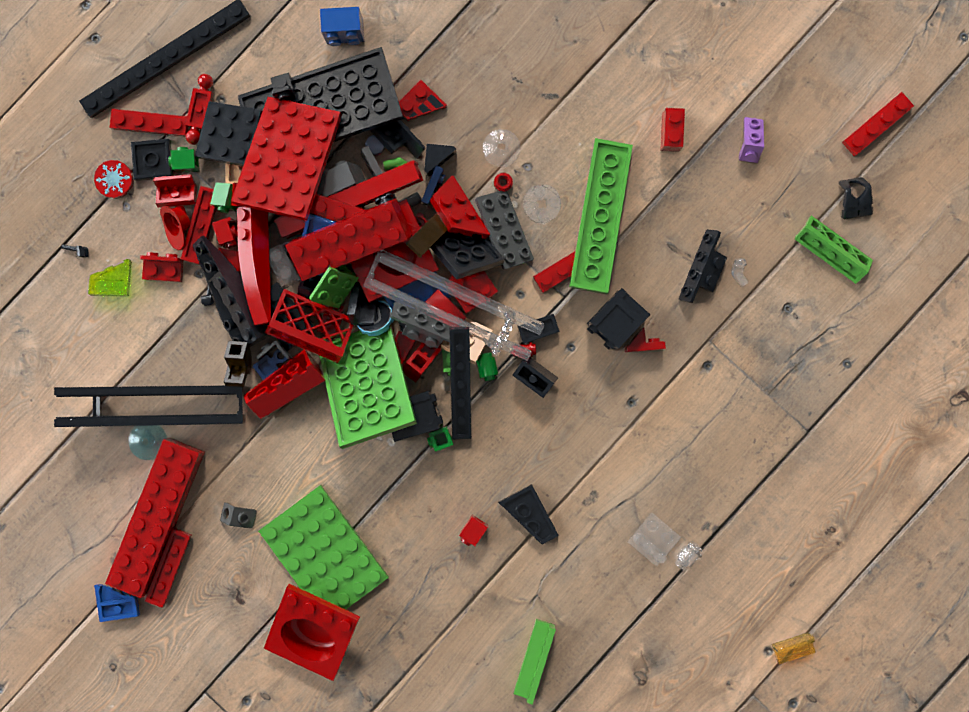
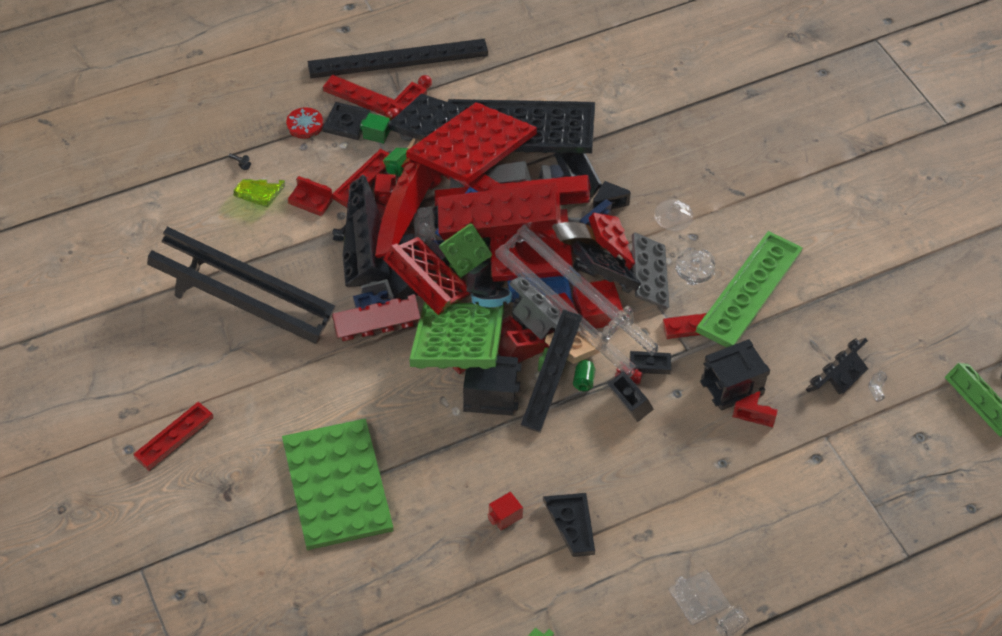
camera: 20 degrees right, 35 degrees down
(115, 604) = (101, 449): blue wing -> none
(154, 517) = (190, 380): red brick -> none
(155, 436) = (214, 332): clear light blue dish -> none
(175, 190) = (356, 144): red bracket -> none
(176, 224) = (342, 167): red piece -> none
(238, 516) = (271, 416): dark grey bracket -> none
(239, 363) = (342, 286): dark brown brick -> none
(282, 87) = (493, 100): black bracket -> none
(311, 632) = (290, 533): red piece -> none
(342, 25) = (567, 77): blue brick -> none
(420, 102) = (611, 157): red wing -> none
(440, 439) = (509, 416): green brick -> none
(503, 176) = (665, 237): red plate -> none
(672, 129) = (846, 248): red brick -> none
(753, 140) = (923, 283): medium lavender bracket -> none

